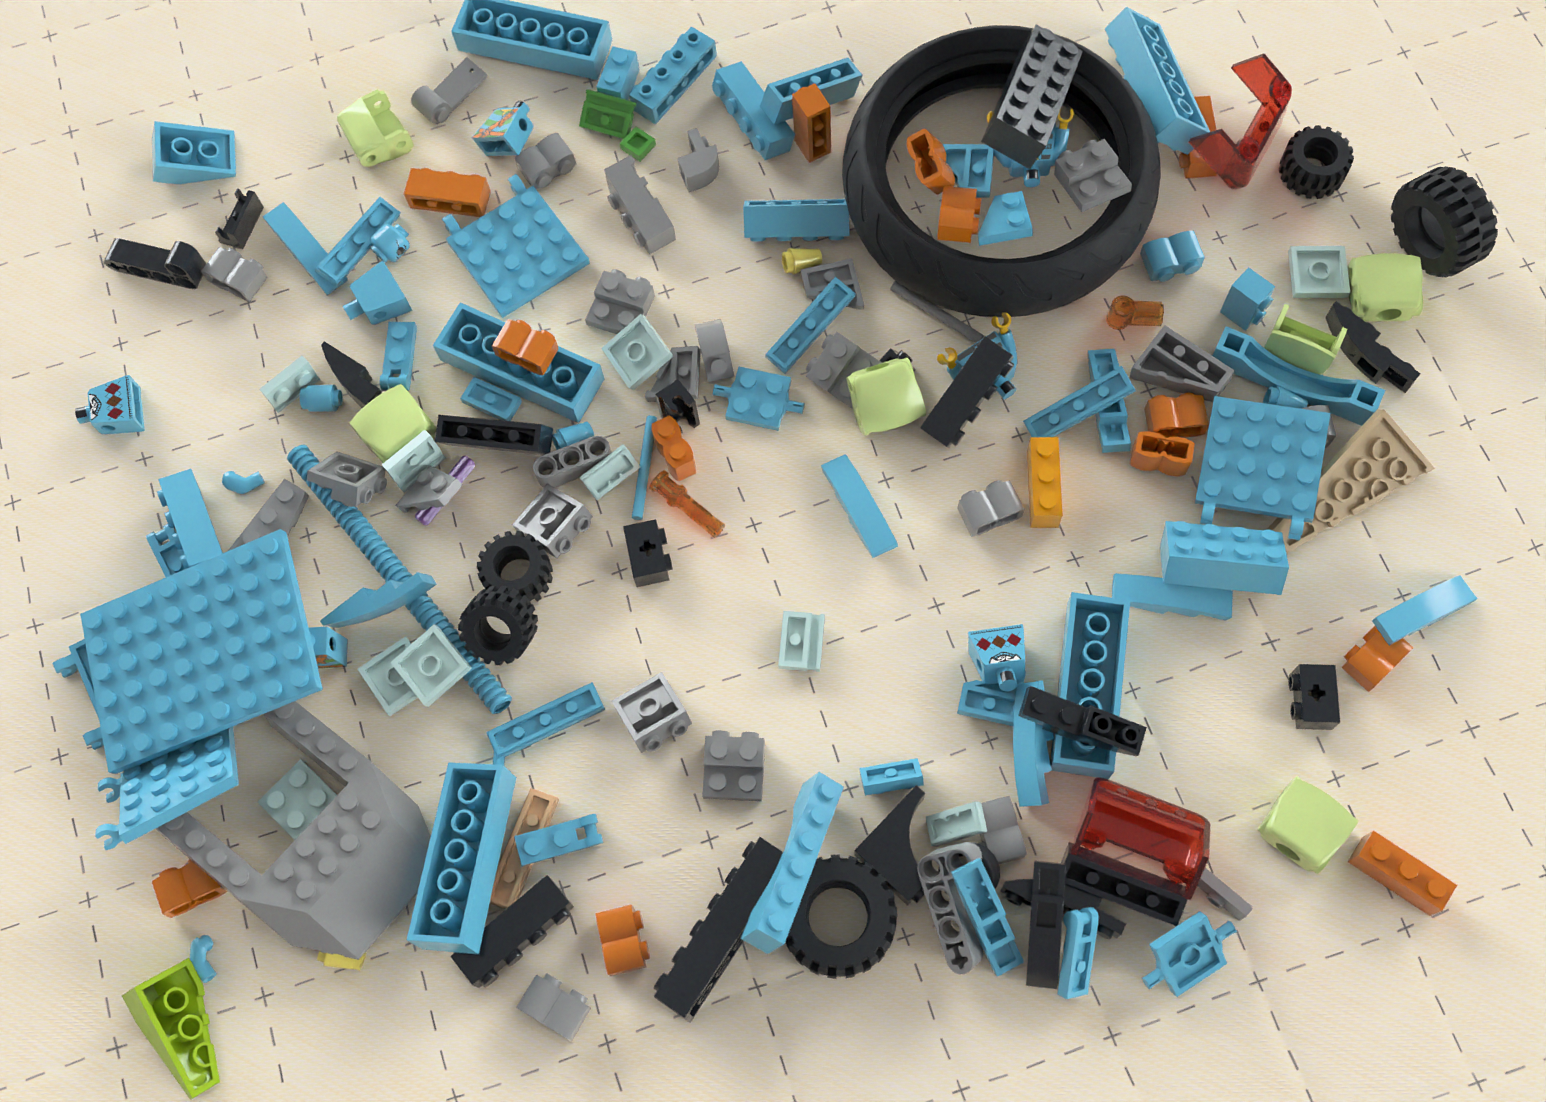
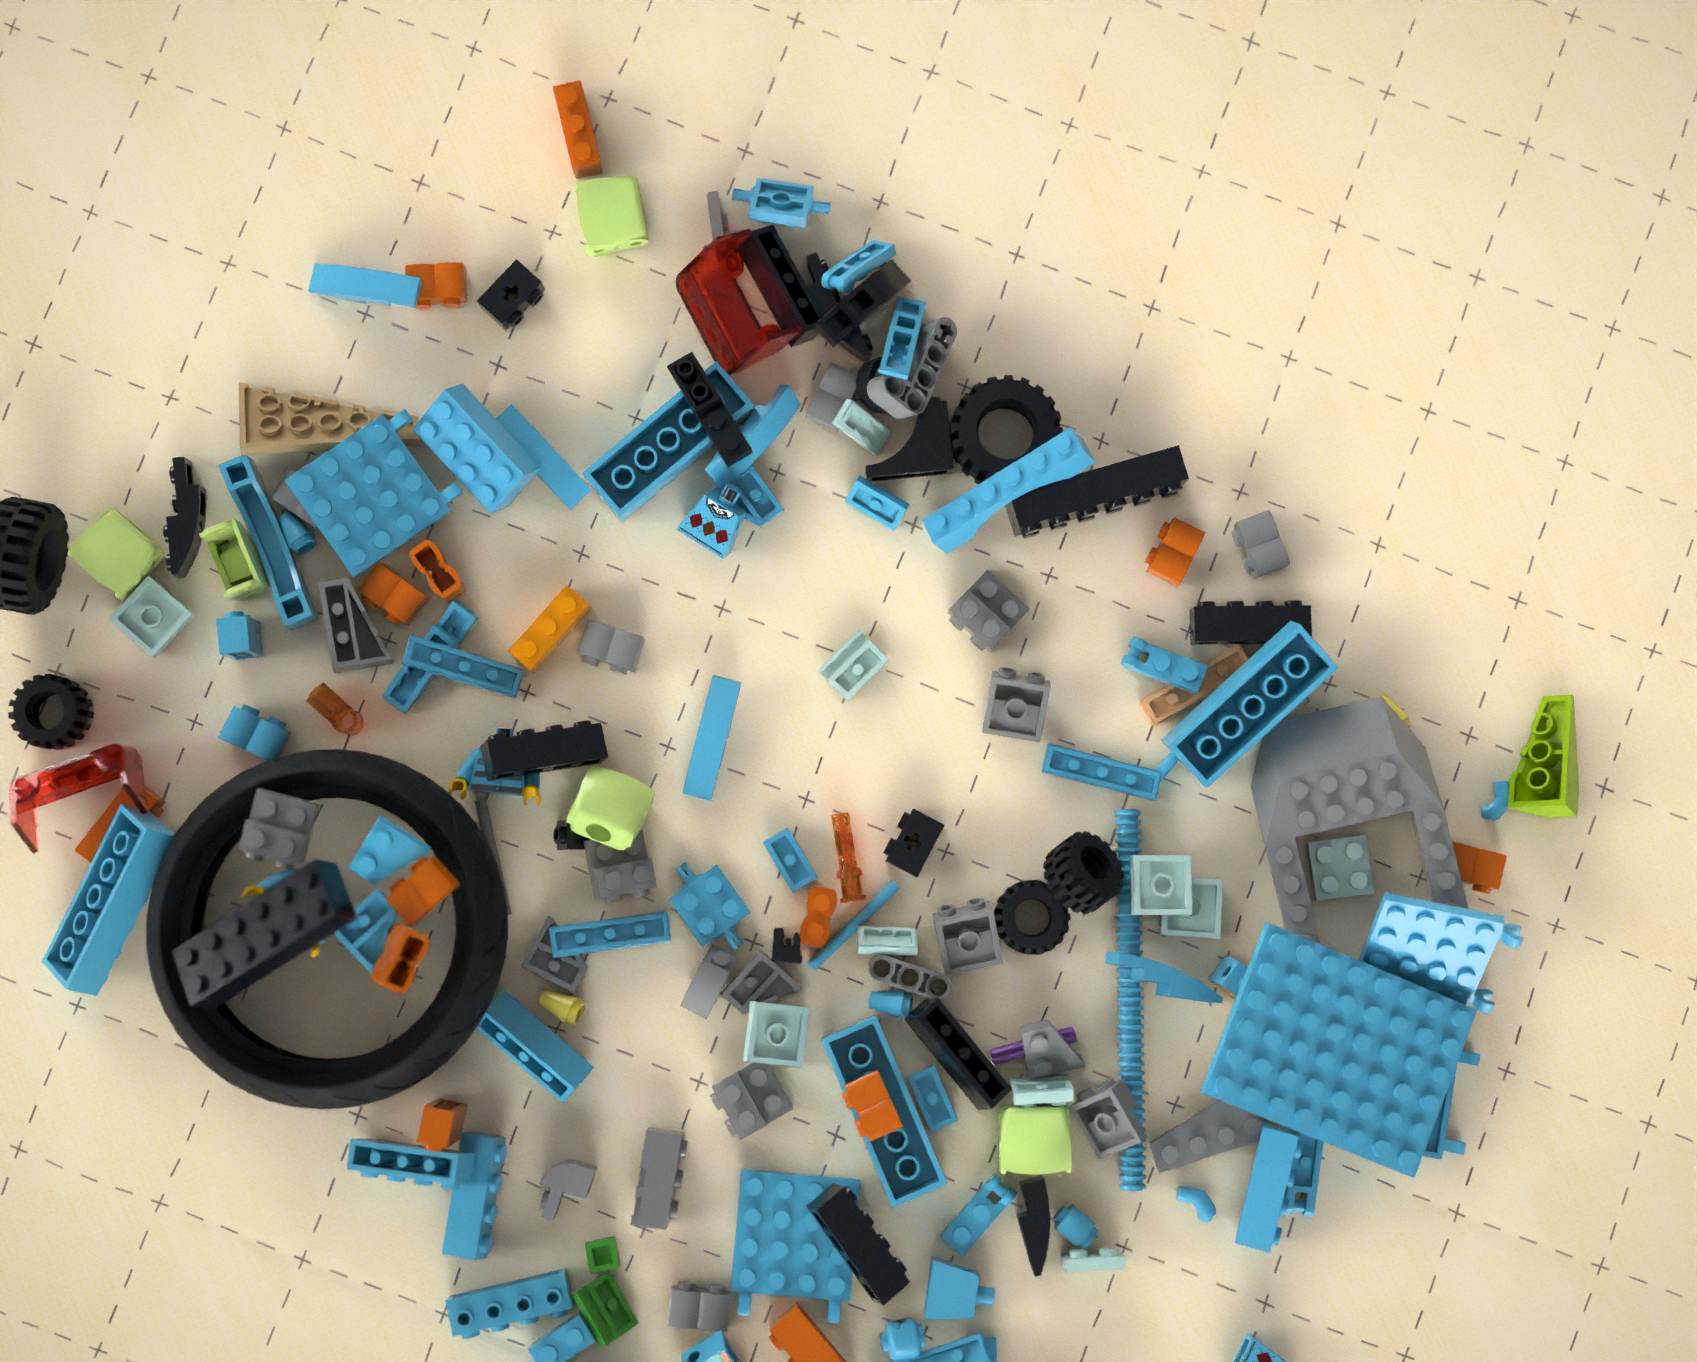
camera: 155 degrees left, 15 degrees up
(467, 268) = (858, 1243): none -> black brick
(727, 471) = (790, 860): none -> medium azure plate

